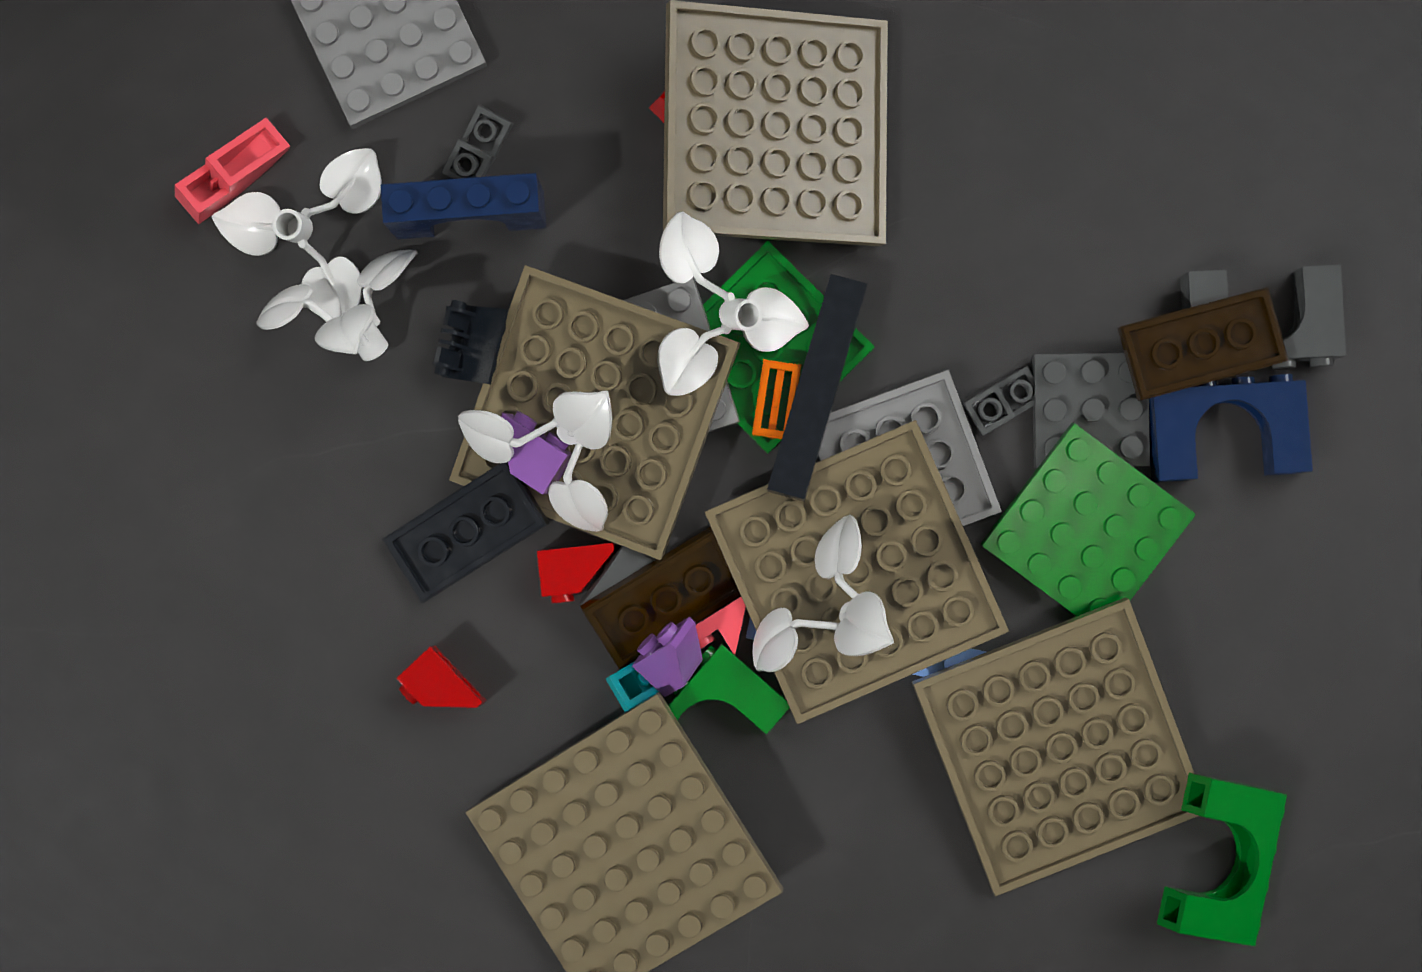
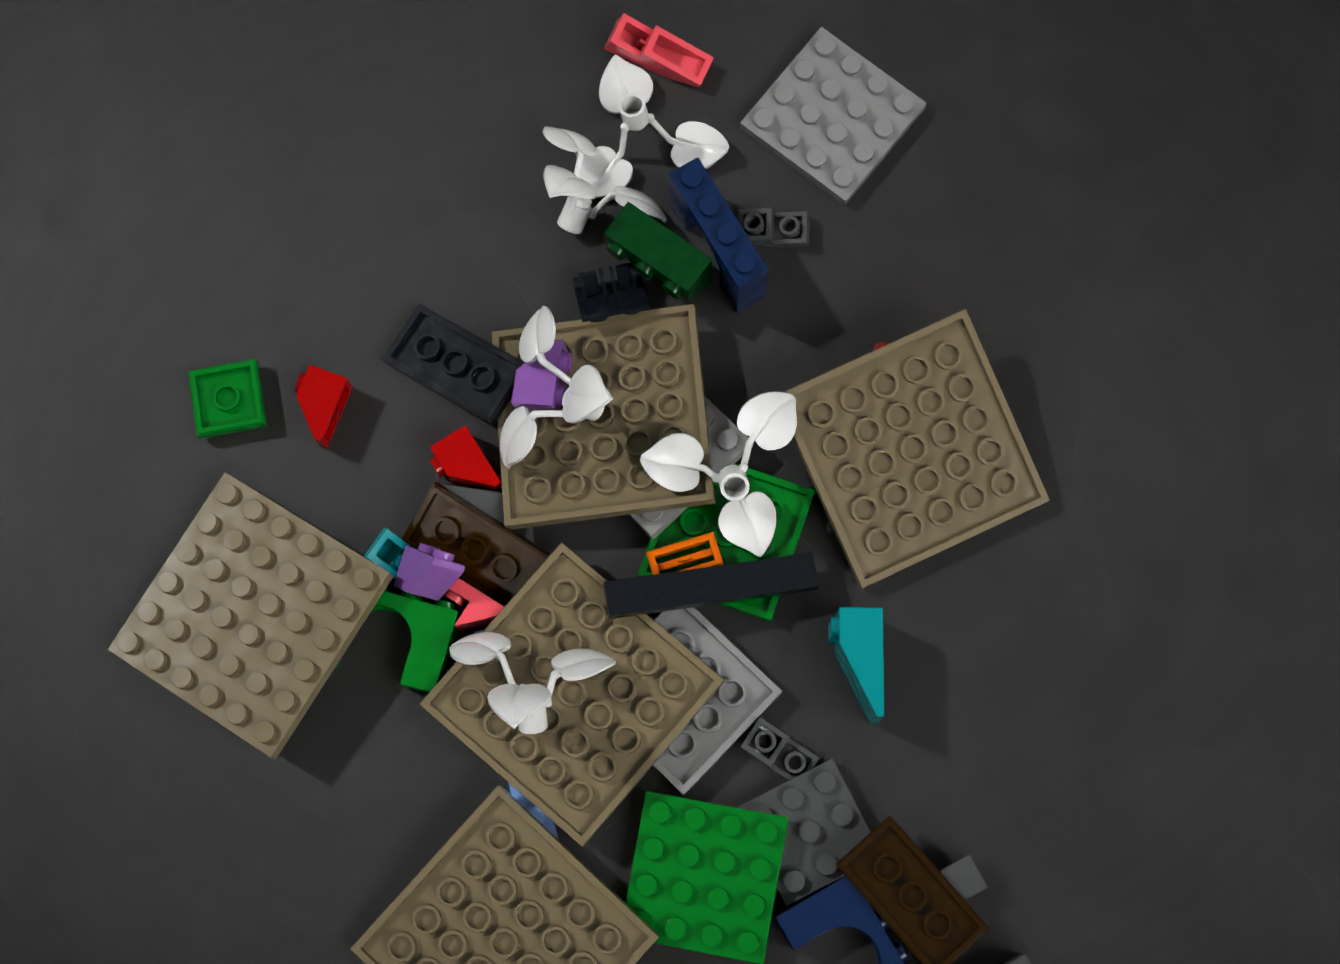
camera: 65 degrees right, 10 degrees down
(387, 776) = (227, 398): none -> green plate
(454, 275) = (658, 253): none -> dark green slope
(951, 275) = (859, 650): none -> teal slope

